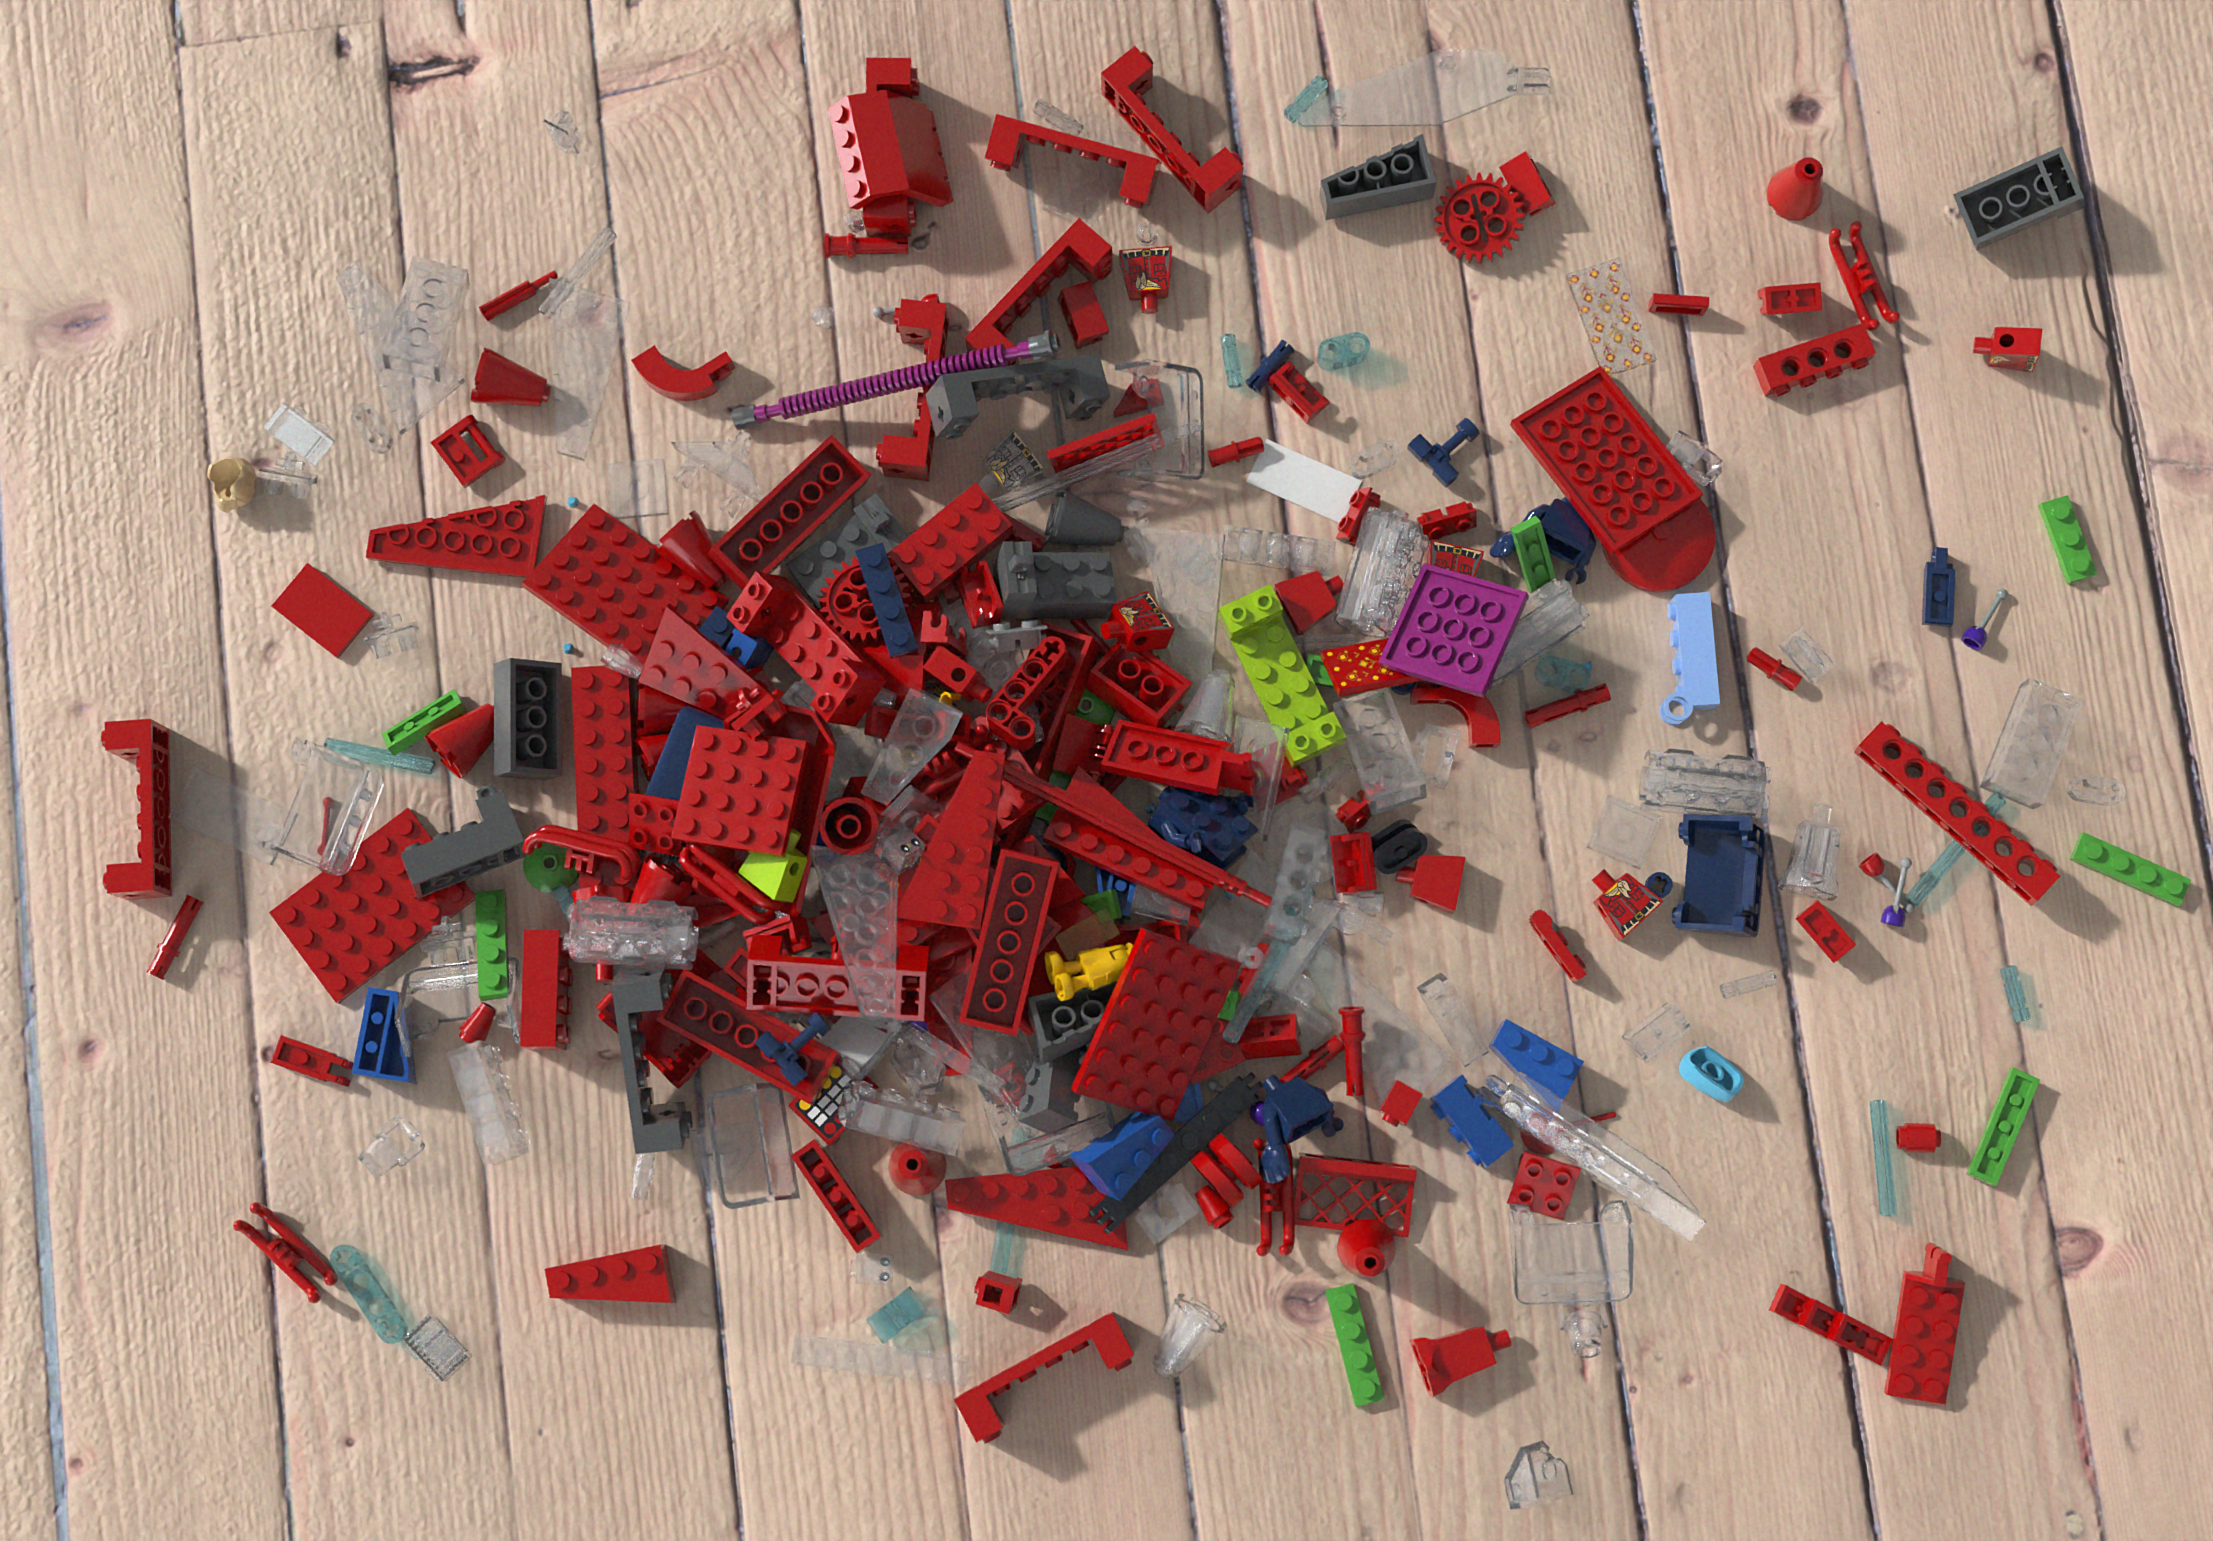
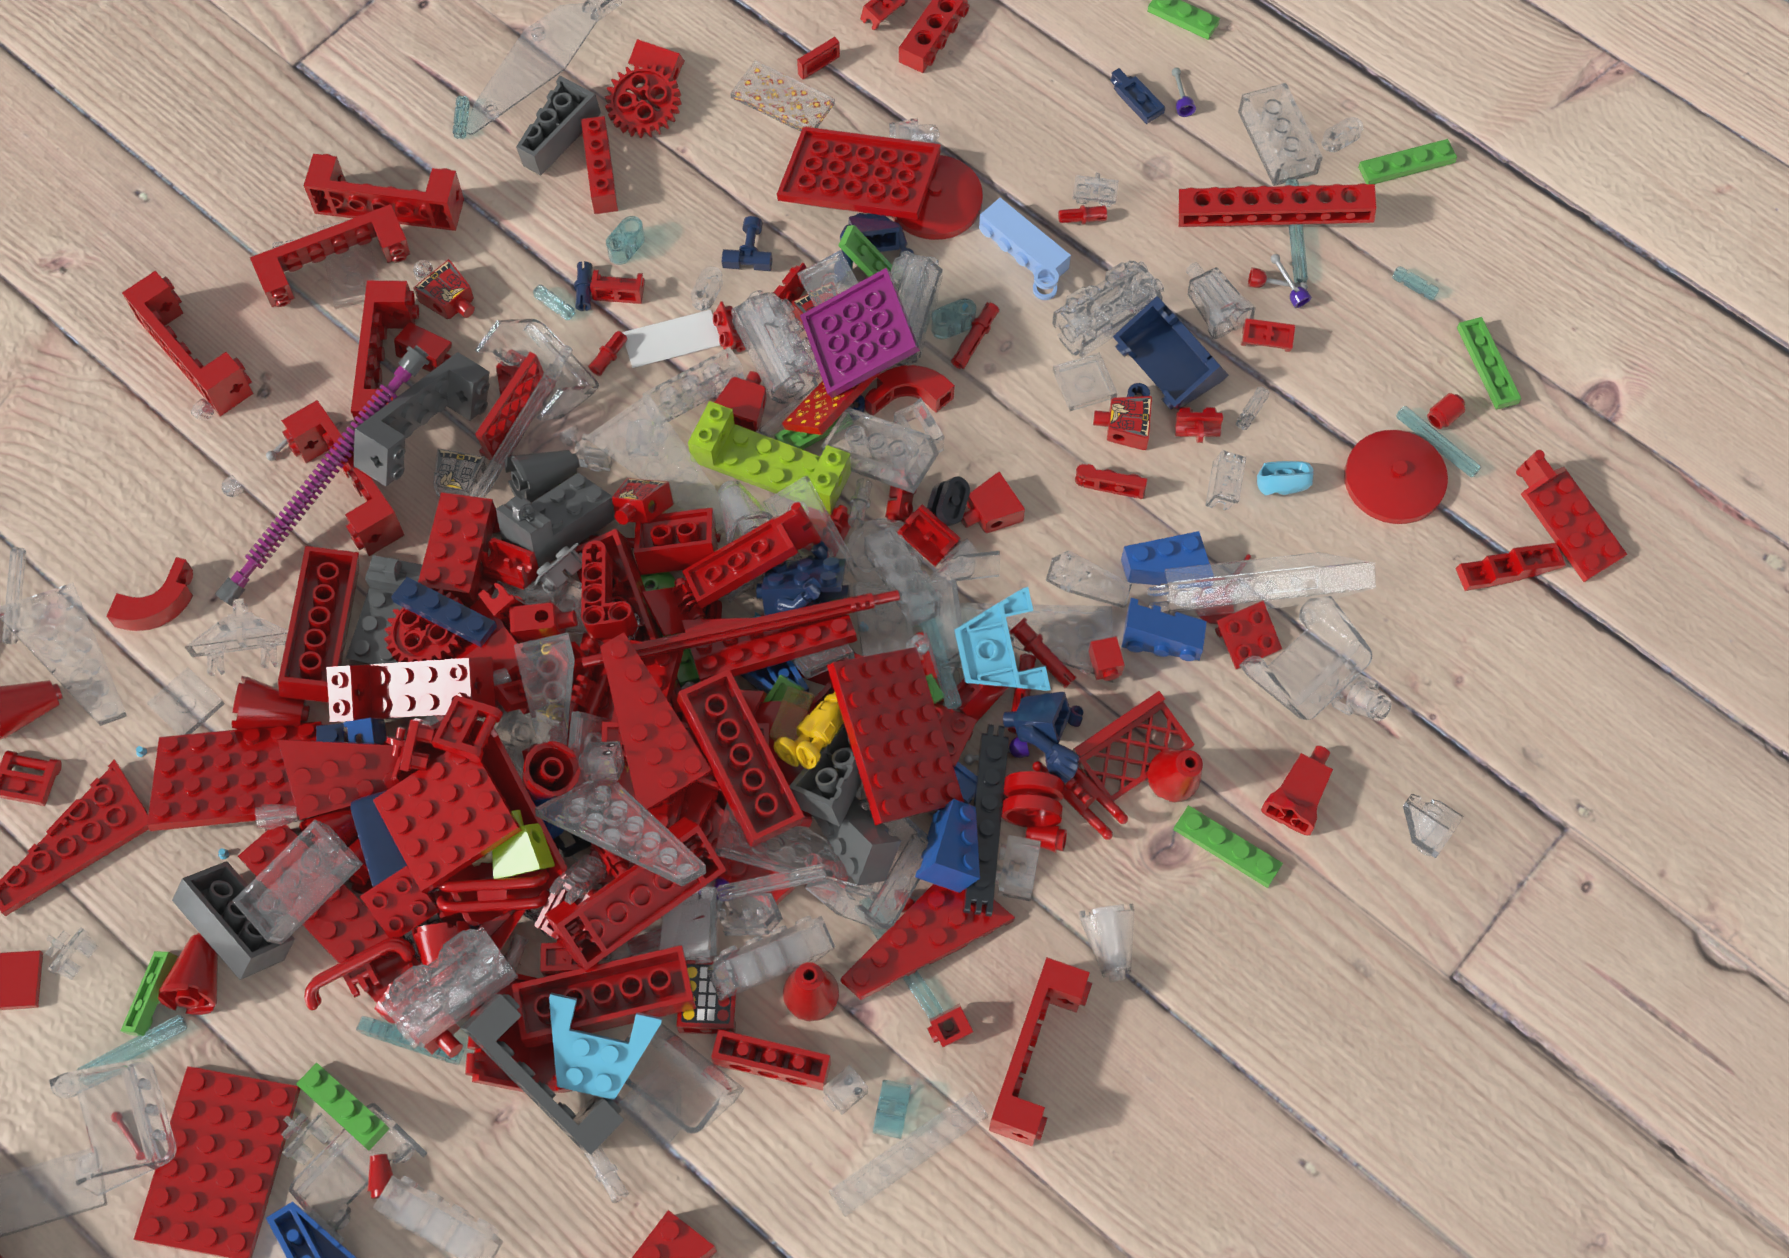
camera: 45 degrees left, 15 degrees down
(468, 851) = (270, 1041): dark grey hinge -> none
(545, 991) = (417, 1106): red brick -> none
(548, 878) = (342, 1028): bright green dish -> none
(592, 739) = (297, 882): none -> clear brick
(696, 1085) = (593, 1061): none -> medium azure wing
(786, 1054) = (645, 974): dark blue bar -> none
(802, 930) = (580, 878): none -> clear hinge
(804, 727) = (459, 723): none -> red plate
(852, 245) = (214, 426): red pin -> none
(888, 149) = (184, 339): red hinge -> none
(1298, 1017) = (988, 650): none -> medium azure wing
(1384, 254) = (599, 165): none -> red brick
(1478, 550) = (827, 278): none -> clear tile
(1682, 960) = (1198, 423): none -> red hips
(1813, 1156) = (1396, 476): none -> red dish

